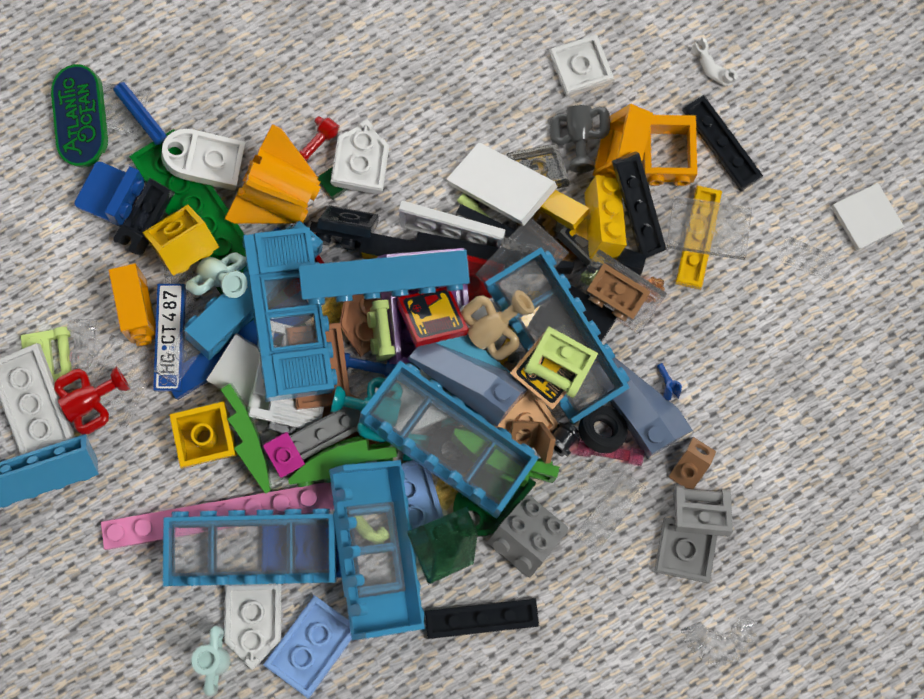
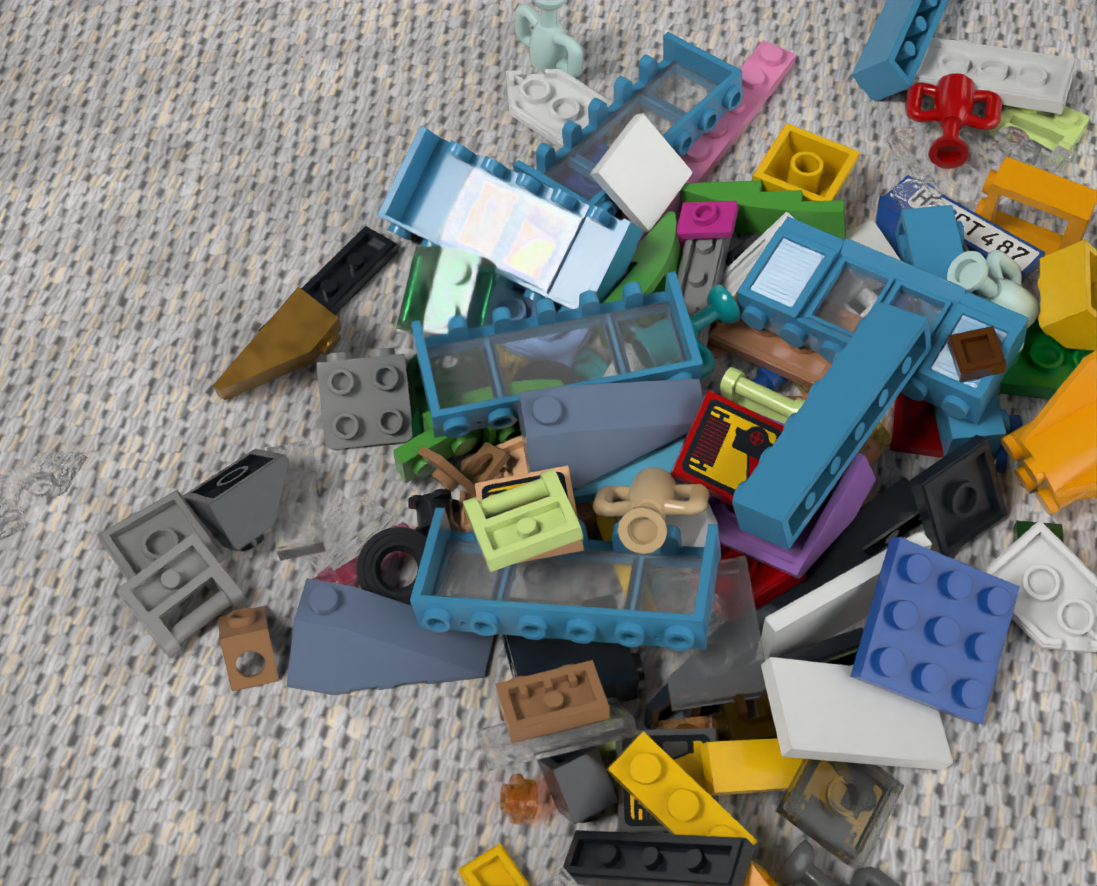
camera: 135 degrees right, 20 degrees down
(287, 242) = (976, 353): none -> reddish brown tile
(287, 506) = (641, 172): none -> white tile
(310, 647) = (477, 120): light blue tile -> none
(435, 178) = (935, 631): none -> blue plate
(541, 594) = (285, 343): none -> pearl gold slope
(633, 536) = (242, 499): none -> black slope
(671, 385) = (378, 708): blue hand -> none

